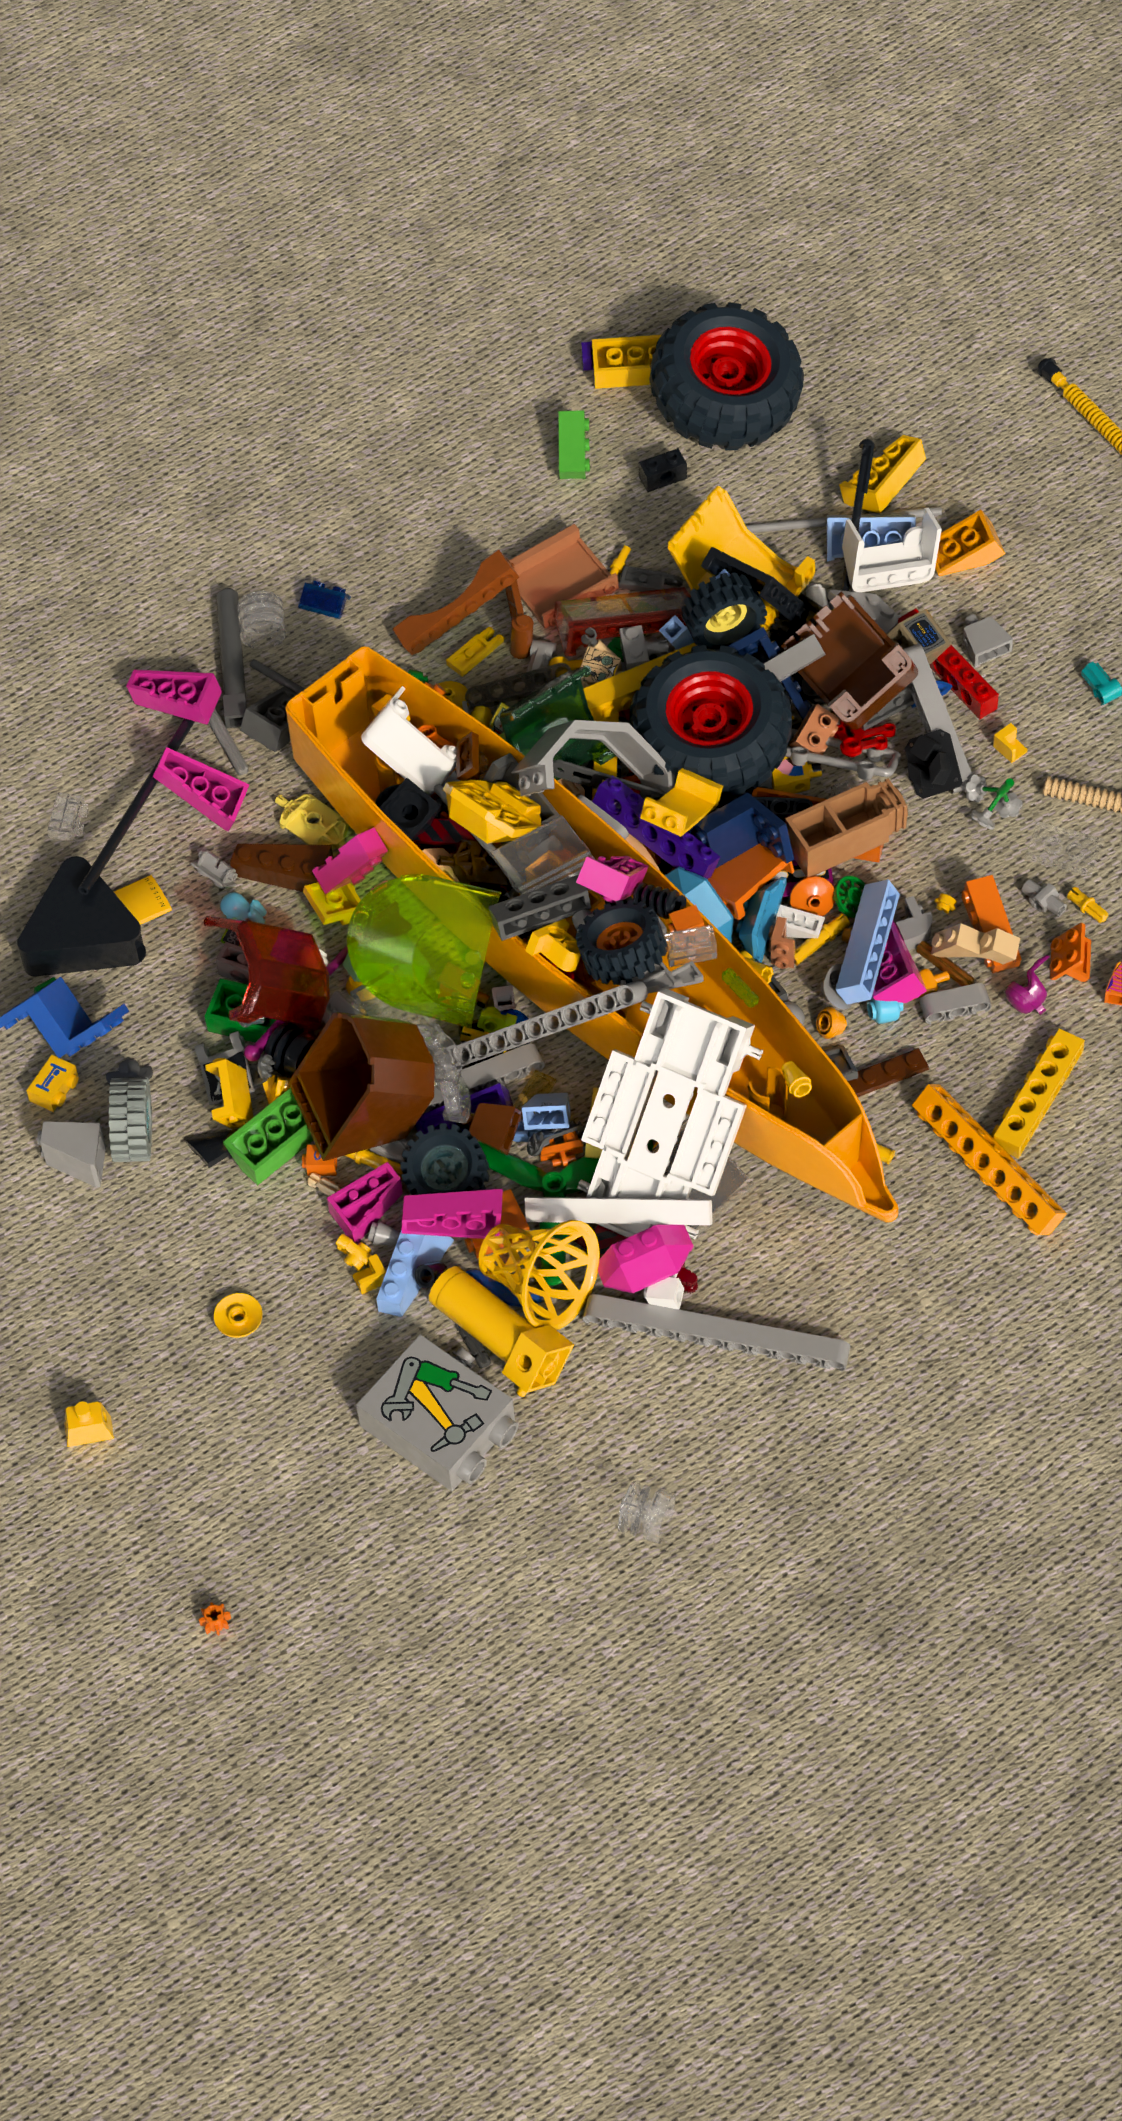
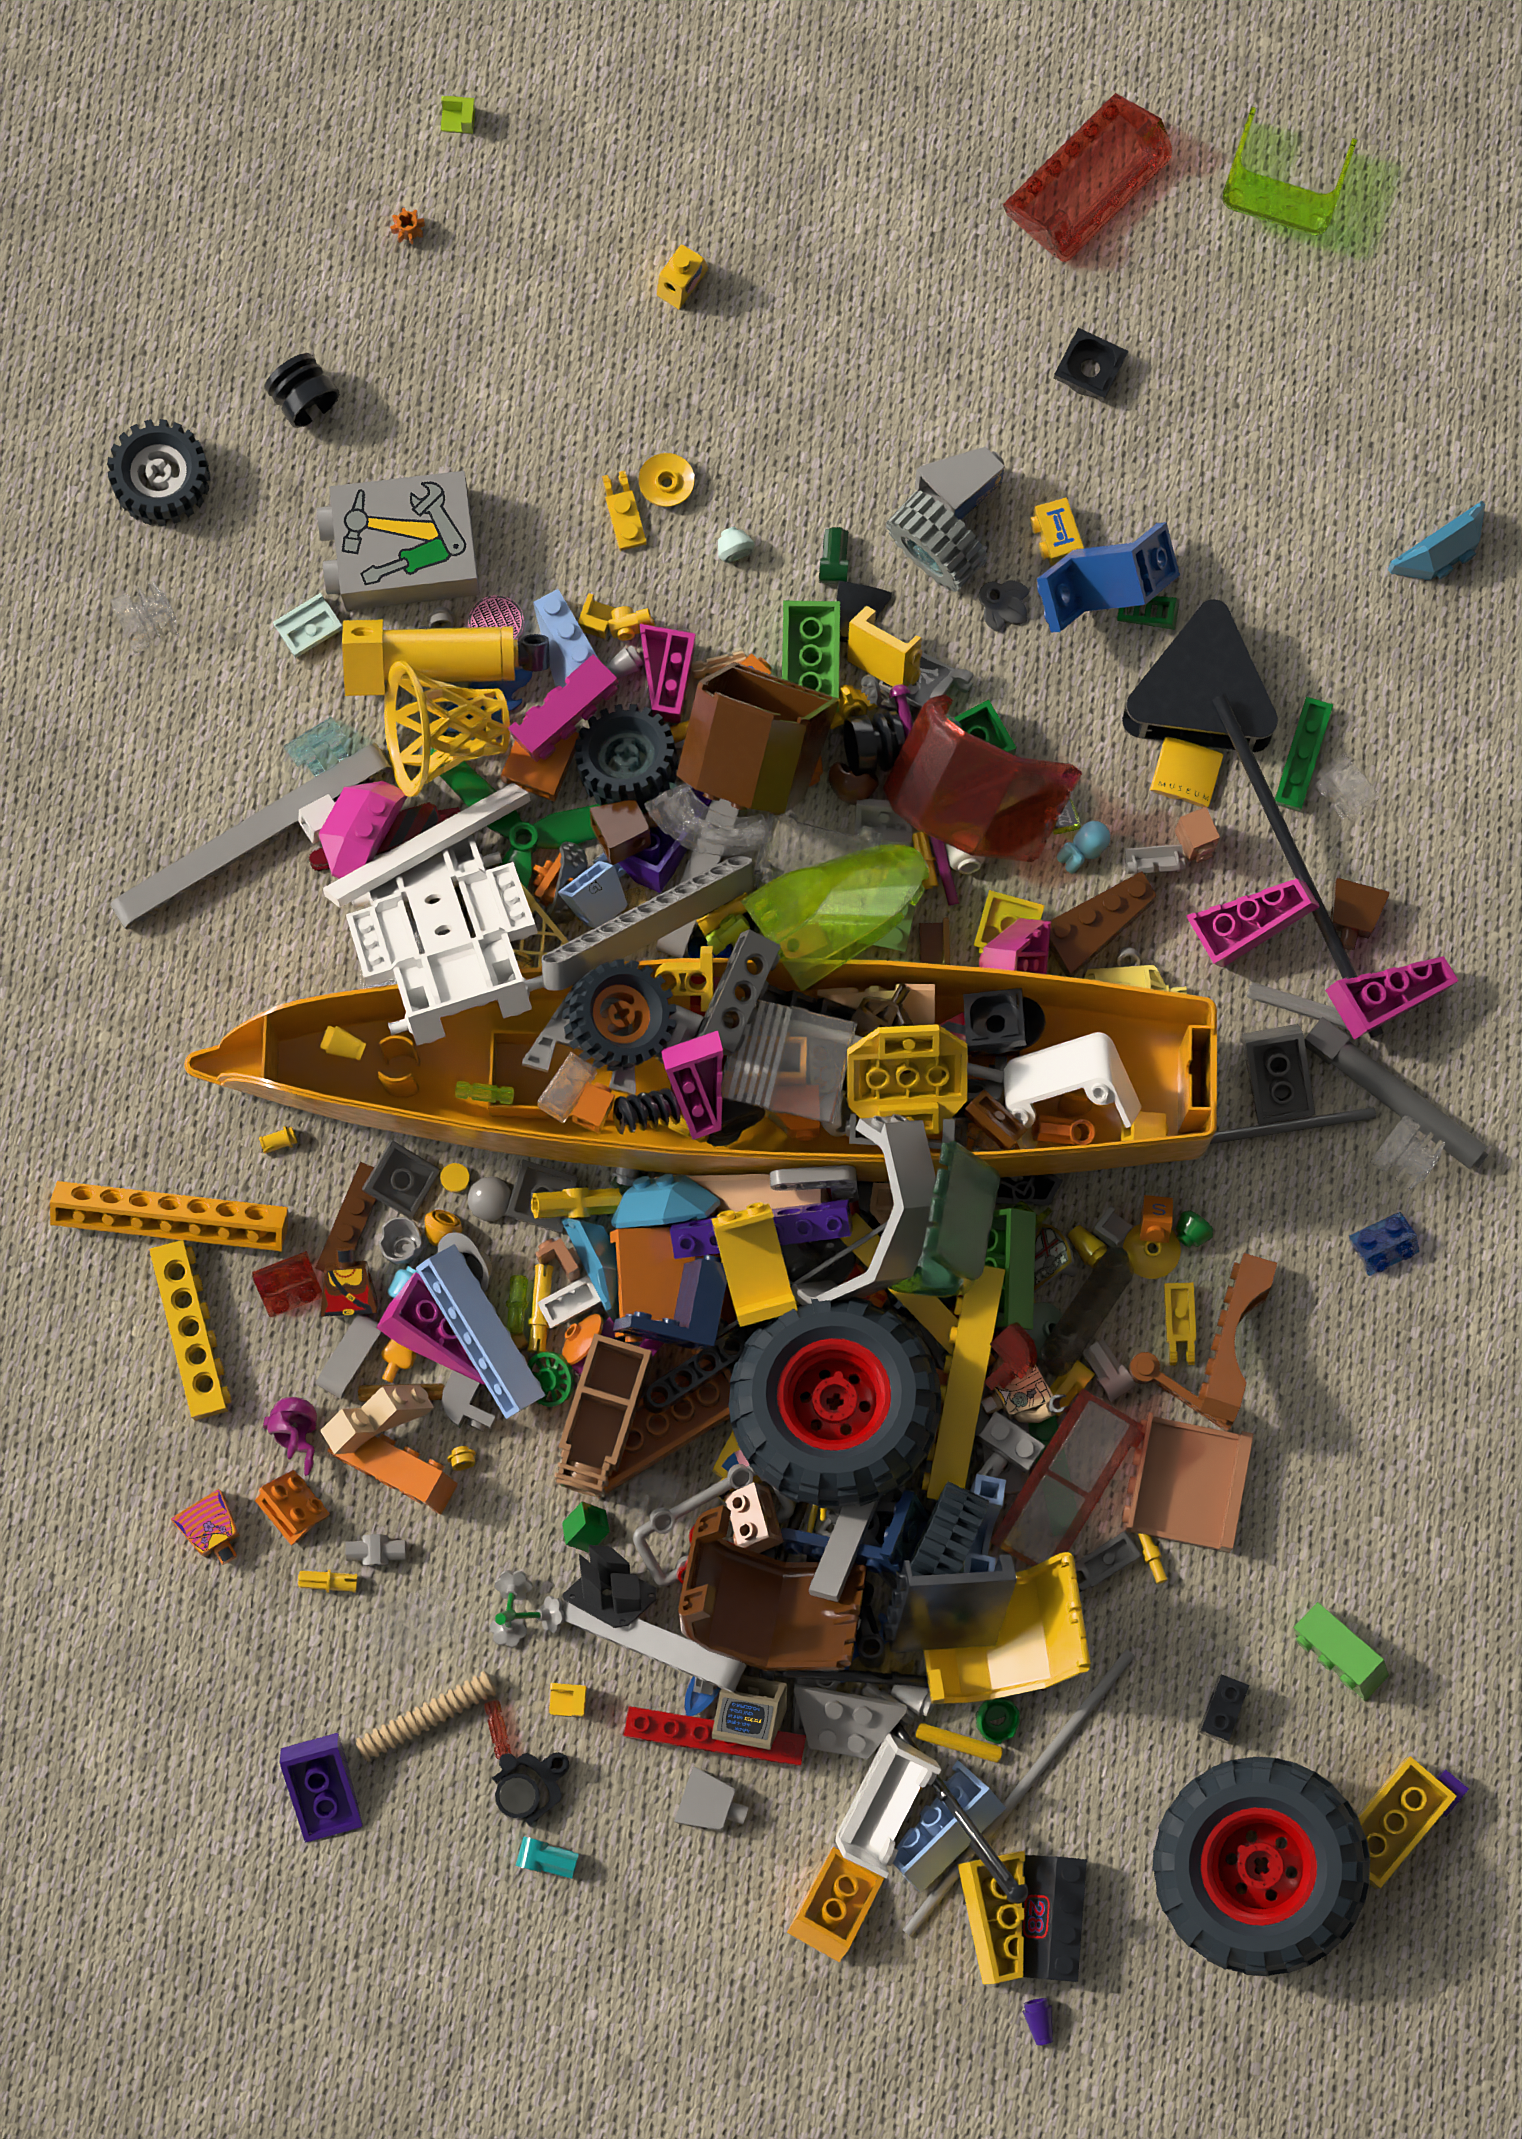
camera: 130 degrees right, 20 degrees up
(49, 862) = (1303, 754): none -> green plate
(102, 1661) = (458, 114): none -> lime panel
(138, 756) = (1355, 910): none -> reddish brown torso
(176, 855) = (1197, 835): none -> nougat brick
(198, 1180) = (834, 561): none -> dark green piece
(243, 1241) = (734, 545): none -> light aqua cone
(284, 1323) = (624, 514): none -> yellow hinge
(288, 837) = (1134, 957): none -> light grey hinge
(338, 980) = (922, 845): none -> yellow axle
(397, 1564) = (299, 386): none -> black wheel
(433, 1326) = (497, 612): none -> tile
(539, 1579) = (145, 452): none -> black wheel
(548, 1427) = (308, 625): none -> light aqua plate
(600, 667) = (1017, 1351): none -> clear red brick
(619, 1352) = (309, 744): none -> clear light blue plate
(790, 554) = (994, 1710): none -> green hair
(820, 569) = (959, 1742): none -> yellow axle
(830, 950) = (517, 1303): none -> clear neon green axle
(843, 456) = (1053, 1917): none -> black slope
(864, 1029) = (401, 1227): none -> light grey hair
(913, 423) = (1039, 2019): none -> dark purple cone
(917, 816) = (585, 1526): none -> green panel
(922, 1034) = (347, 1286): none -> torso
(952, 1072) = (287, 1284): none -> clear red bracket
(1065, 762) = (497, 1728): none -> clear red axle
(1086, 723) = (518, 1794): none -> black piece

